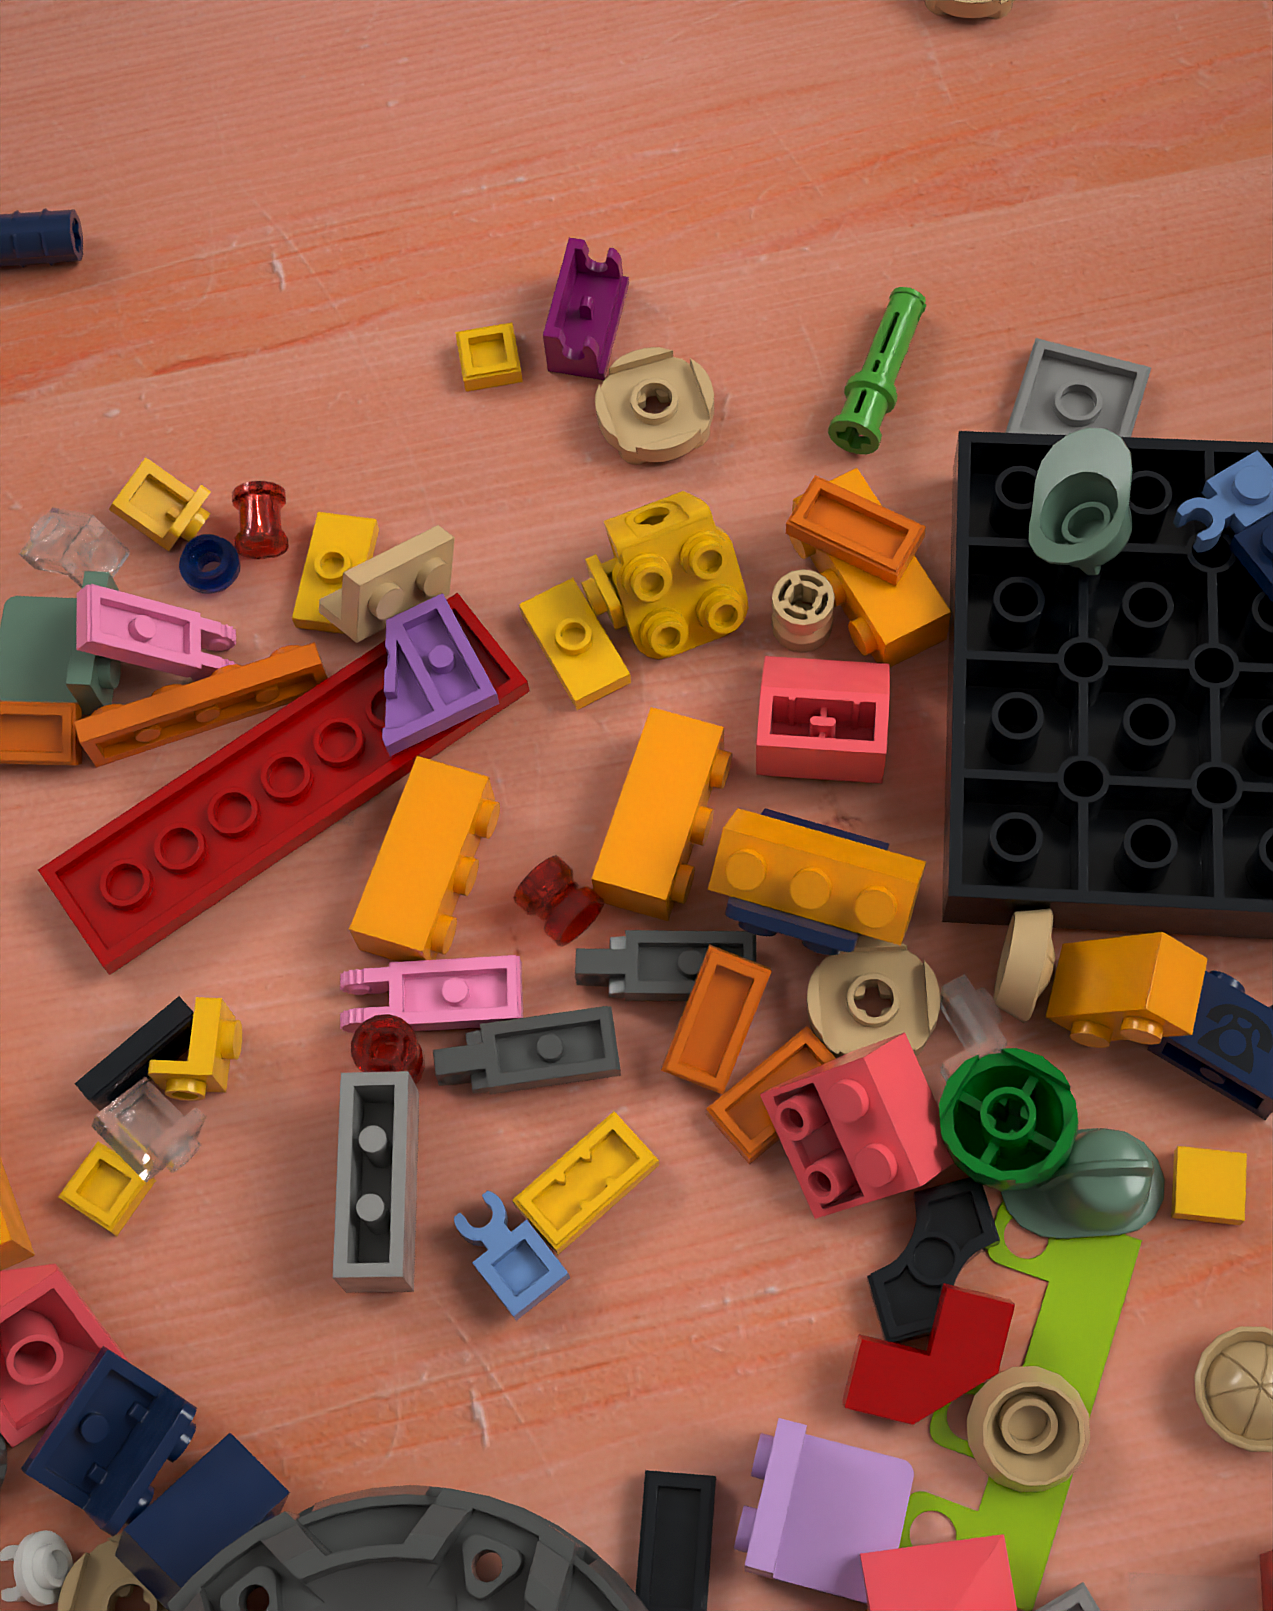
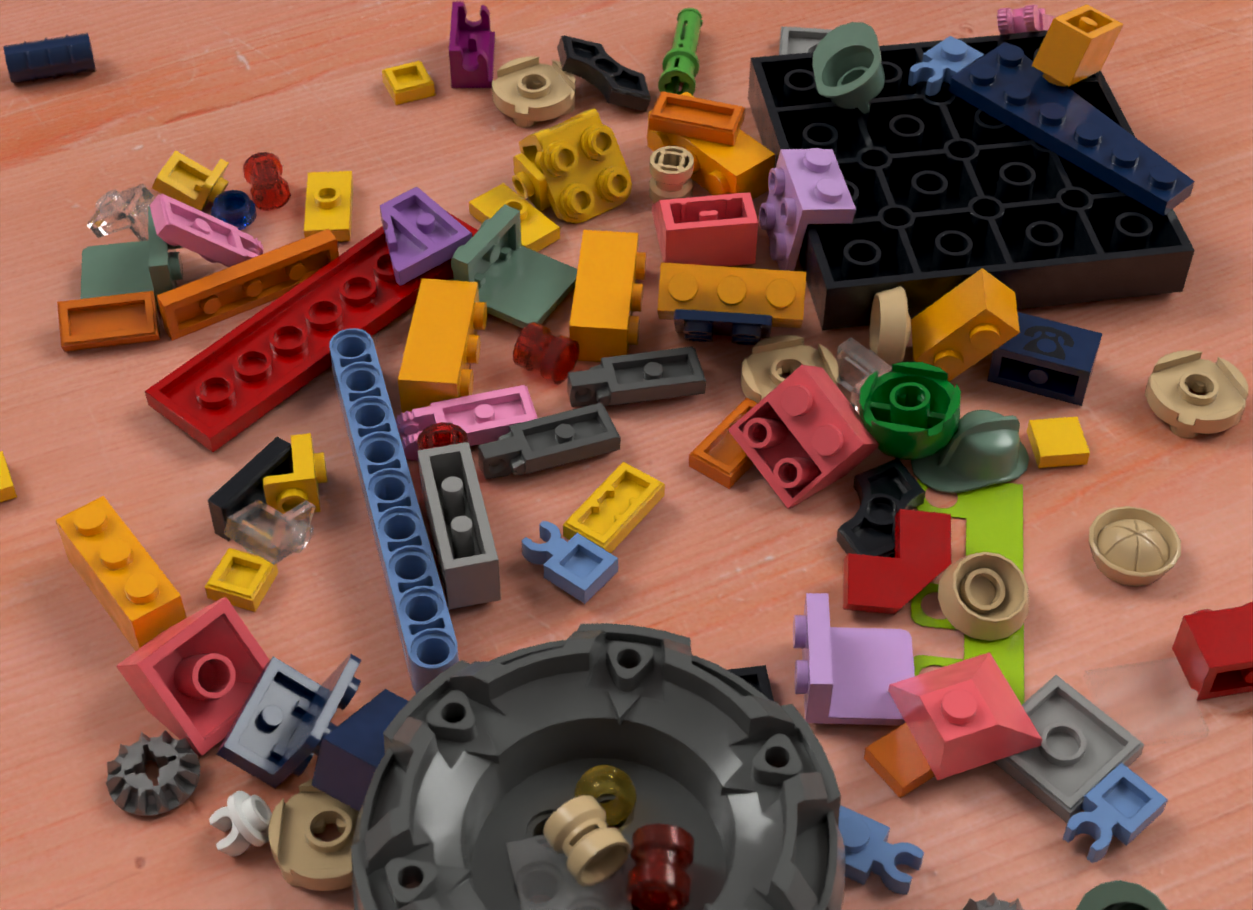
camera: 20 degrees left, 20 degrees down
(314, 1146) = (393, 509): none -> medium blue beam
(391, 584) = (371, 186): tan bracket -> none
(545, 754) = (512, 278): none -> sand green bracket
(716, 1019) = (682, 397): orange tile -> none
(773, 414) = (613, 80): none -> black tile
(965, 719) = (803, 191): none -> lavender bracket

